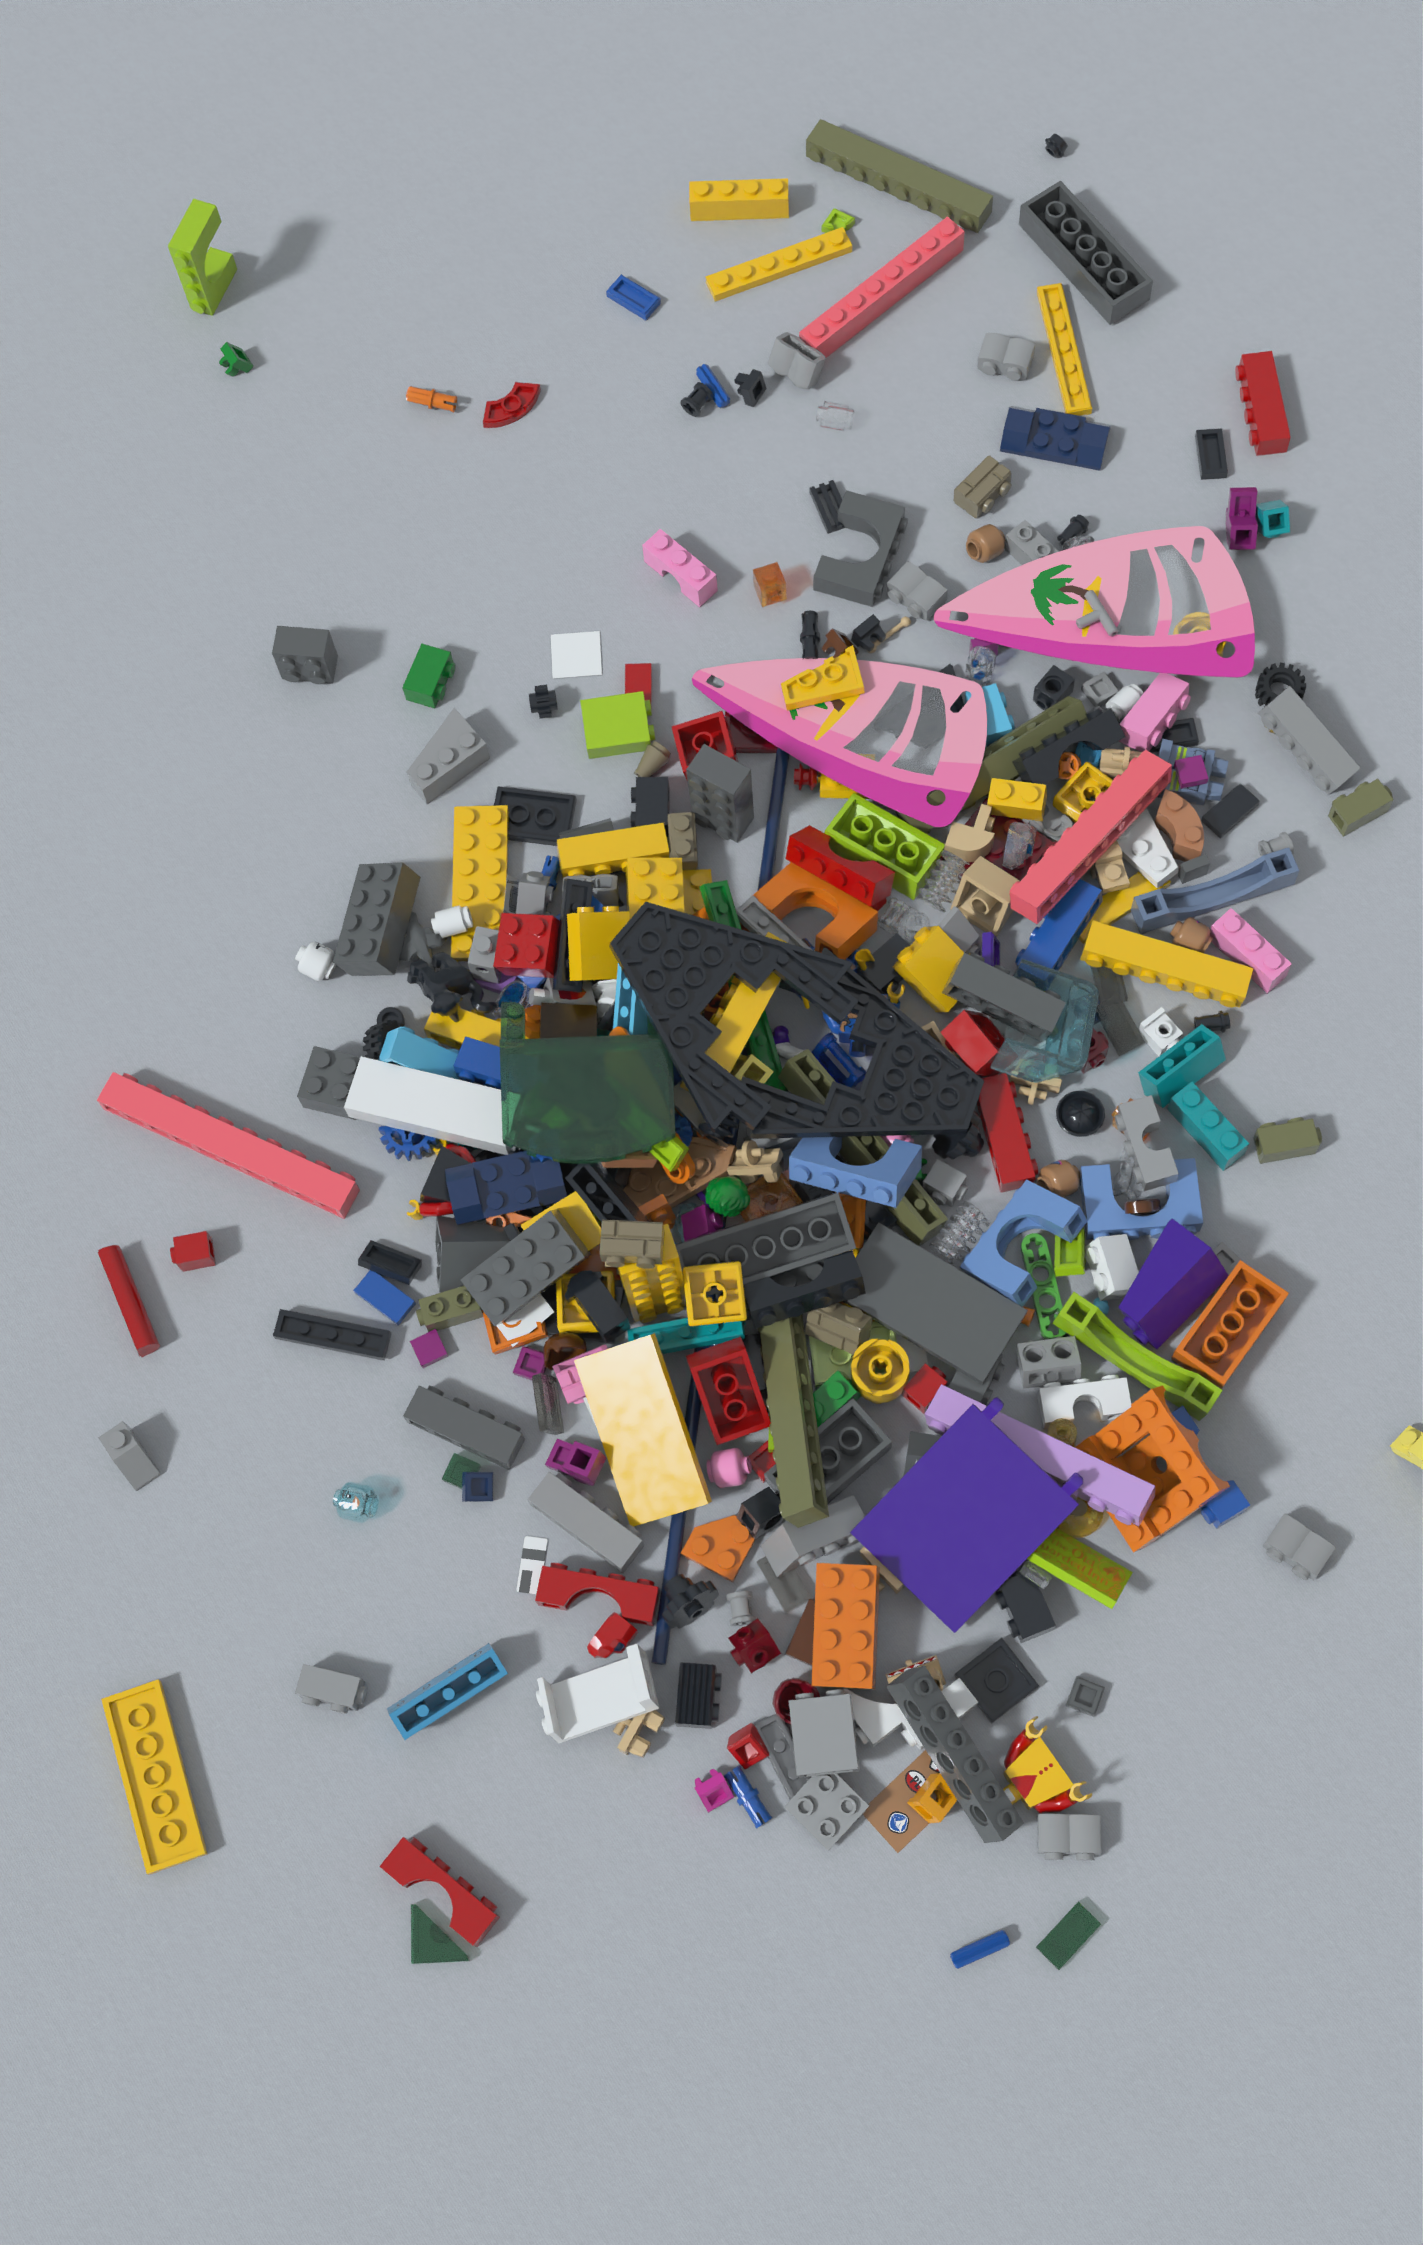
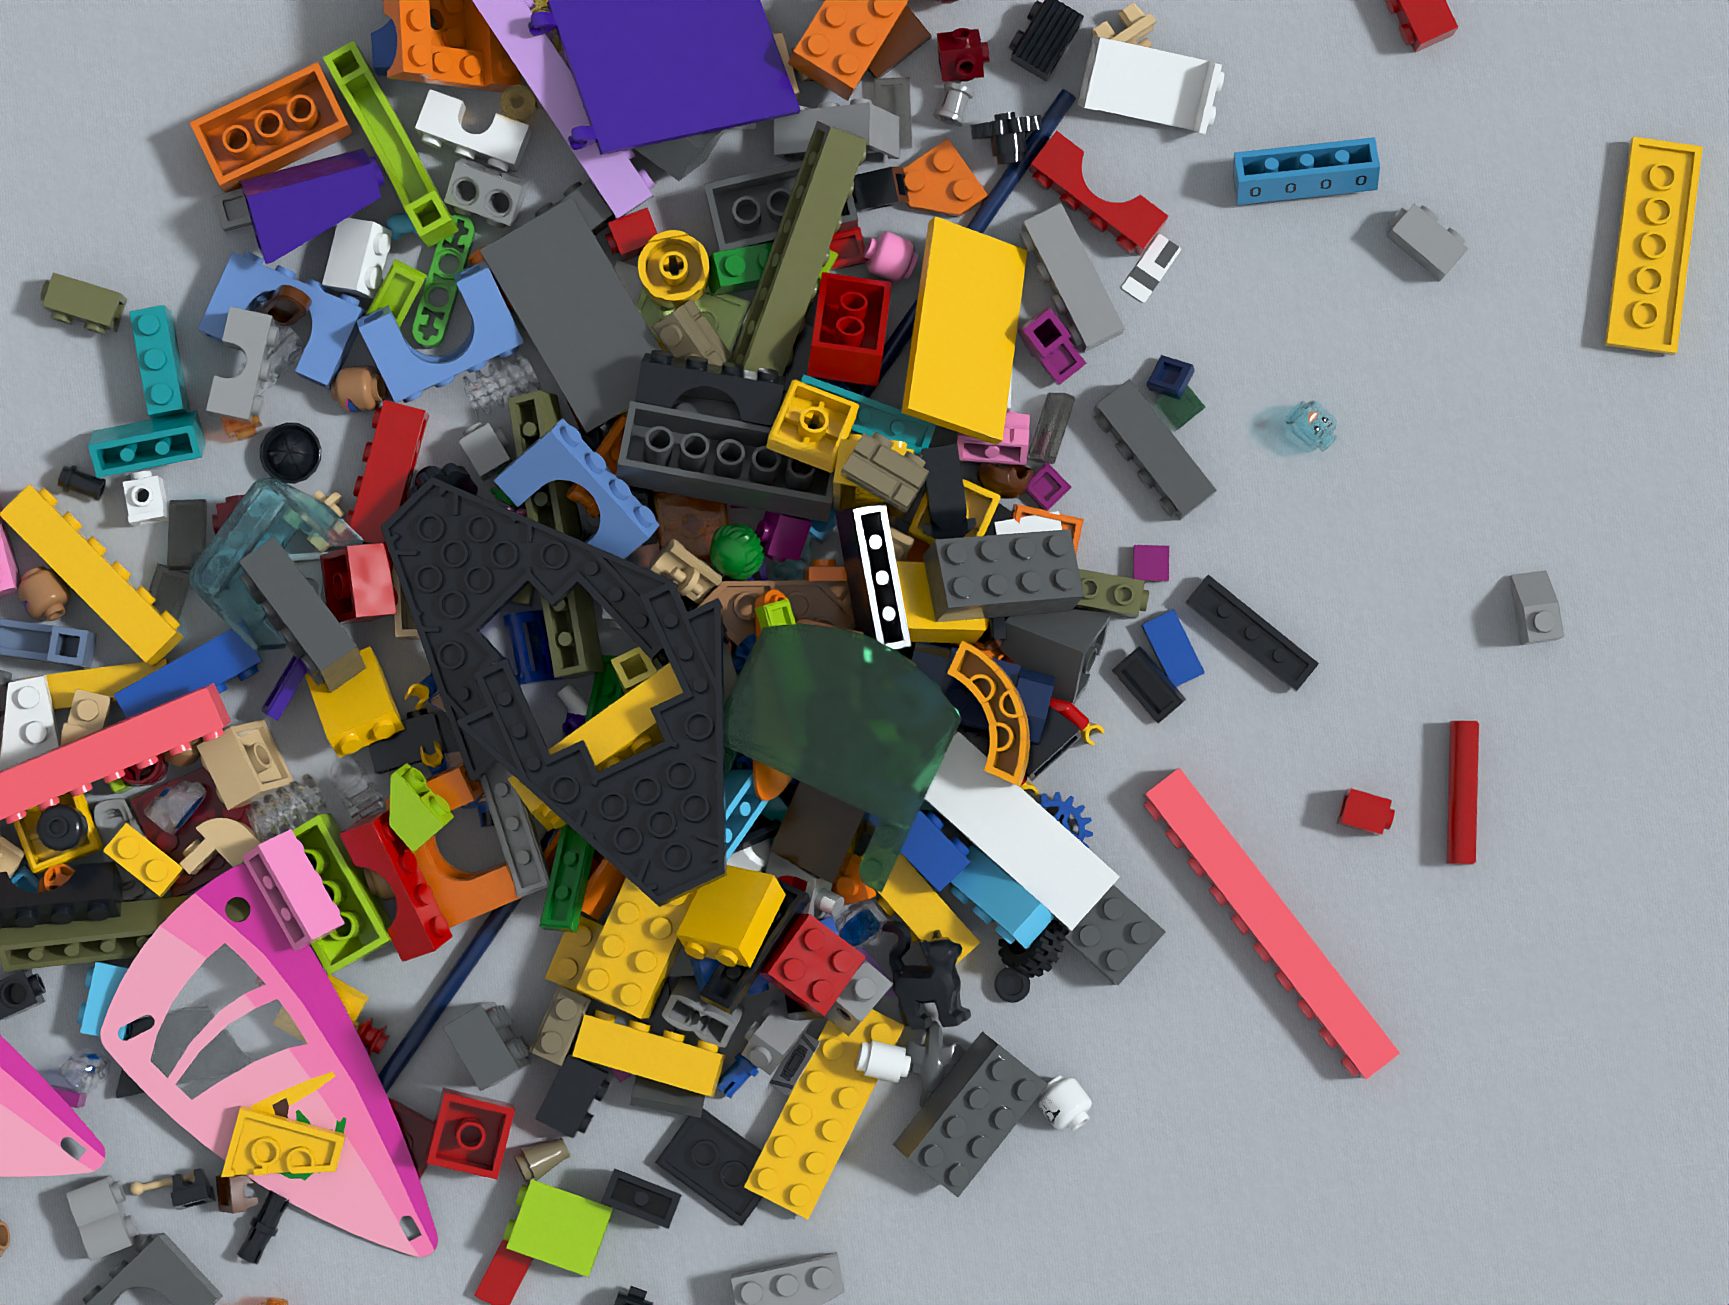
camera: 165 degrees left, 15 degrees up
(481, 1172) = (1003, 709): none -> light orange brick
(571, 765) = (641, 1198): none -> black brick
(612, 1637) = (1104, 143): red rock -> none
(851, 909) = (414, 808): none -> lime slope
(904, 823) = (293, 890): none -> bright pink brick
(960, 931) = (306, 731): light grey slope -> none
(1082, 789) = (62, 828): none -> black head

